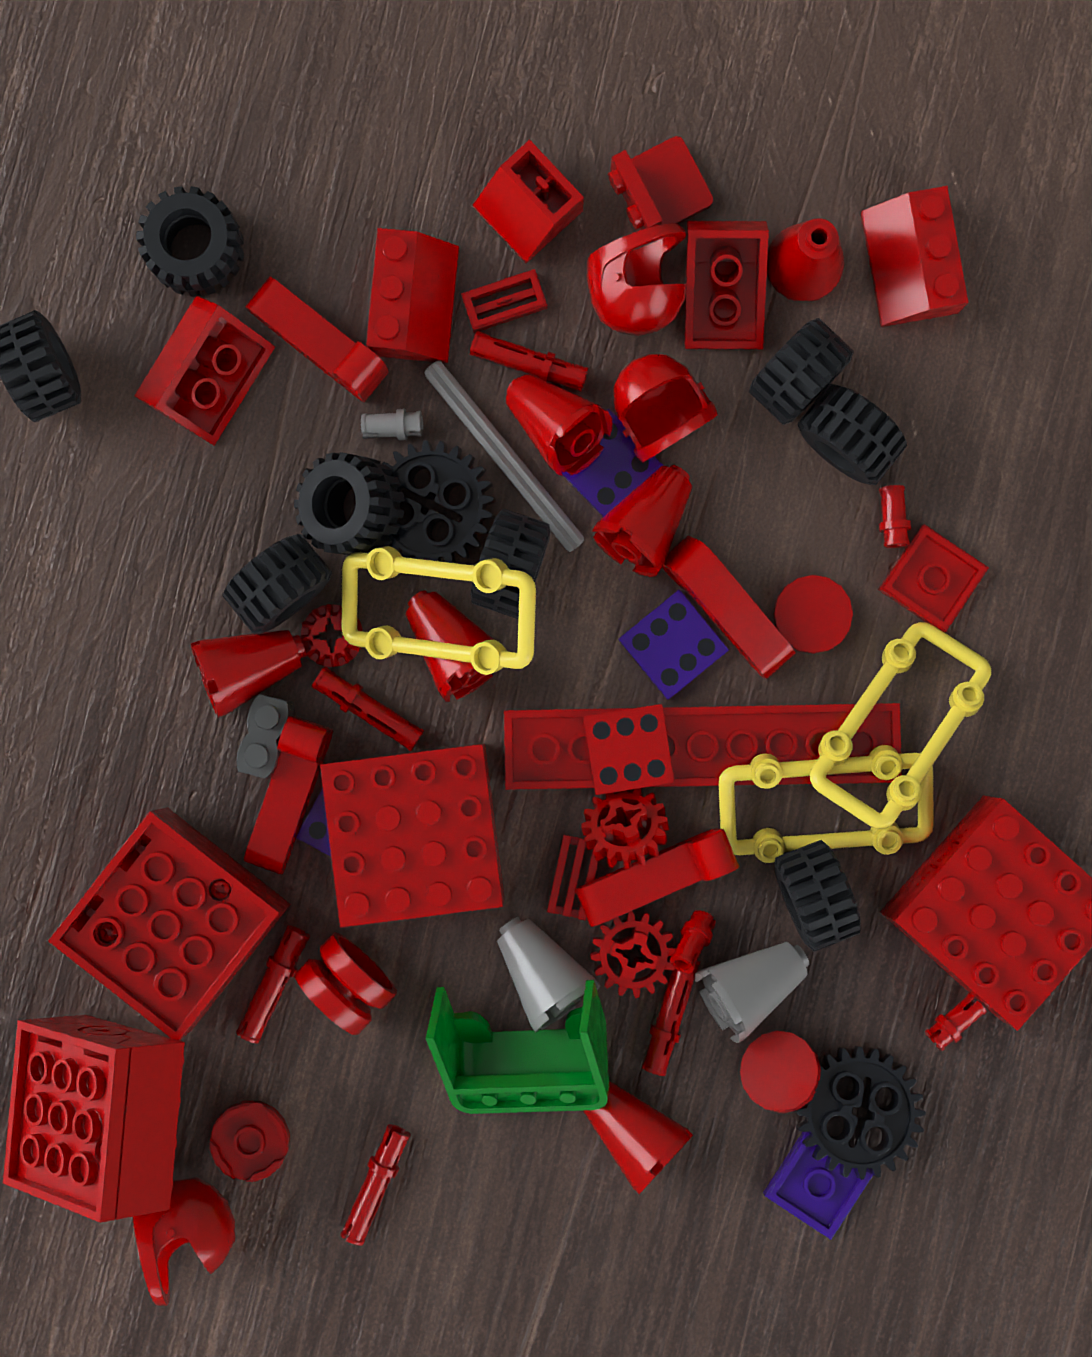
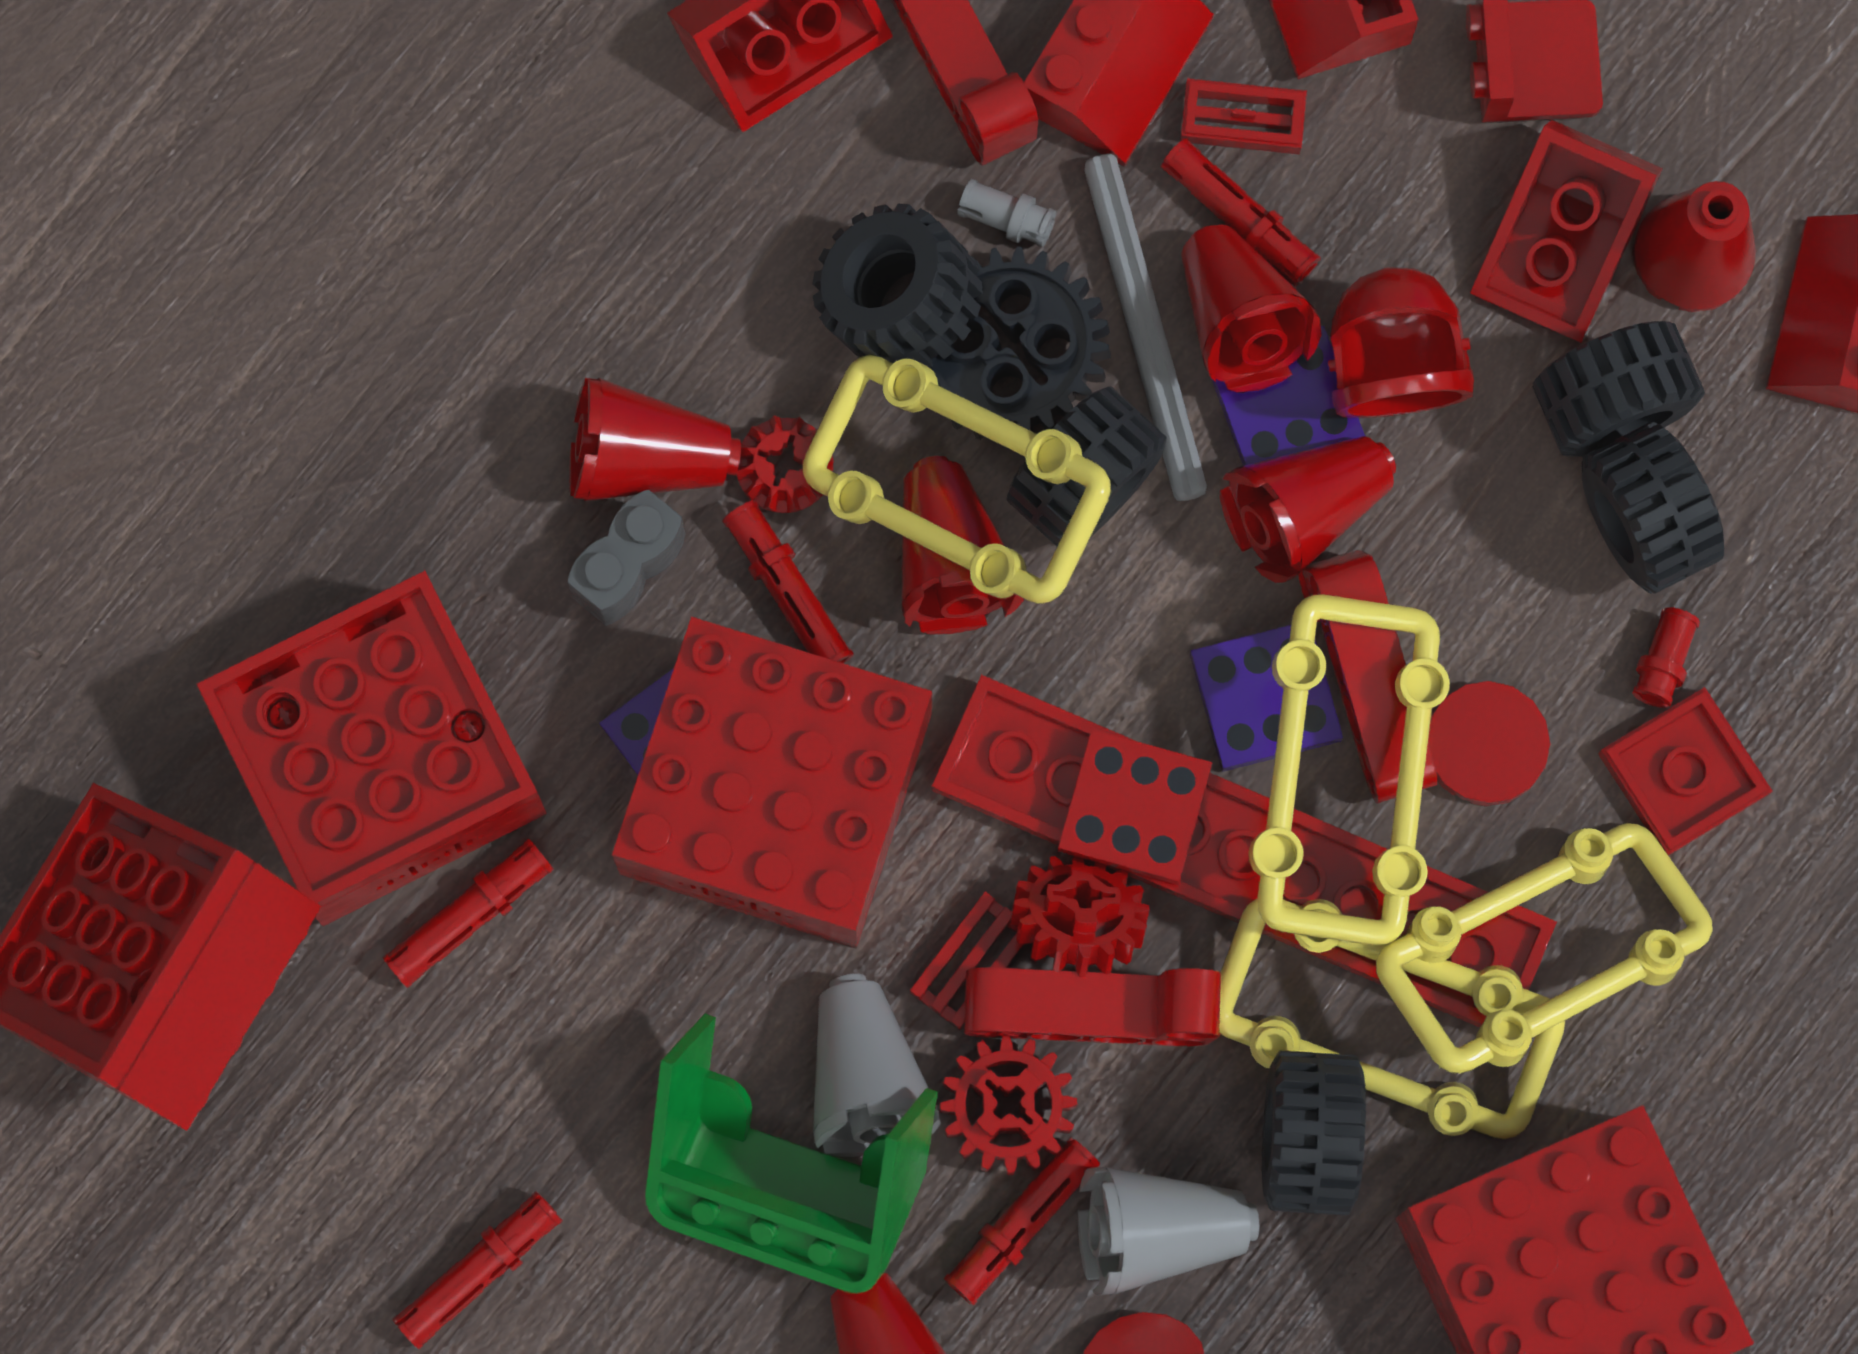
camera: 20 degrees right, 10 degrees down
(195, 1217) = (178, 1184): red piece -> none
(249, 1141) = (325, 1125): red tile -> none
(277, 583) = (746, 350): black tyre -> none
(288, 794) = (621, 650): red beam -> none
(345, 984) = (572, 951): red wheel -> none
(628, 283) = (1429, 175): red piece -> none
(692, 630) = (1278, 850): none -> light yellow bar
(695, 936) = (1108, 1121): red pin -> none

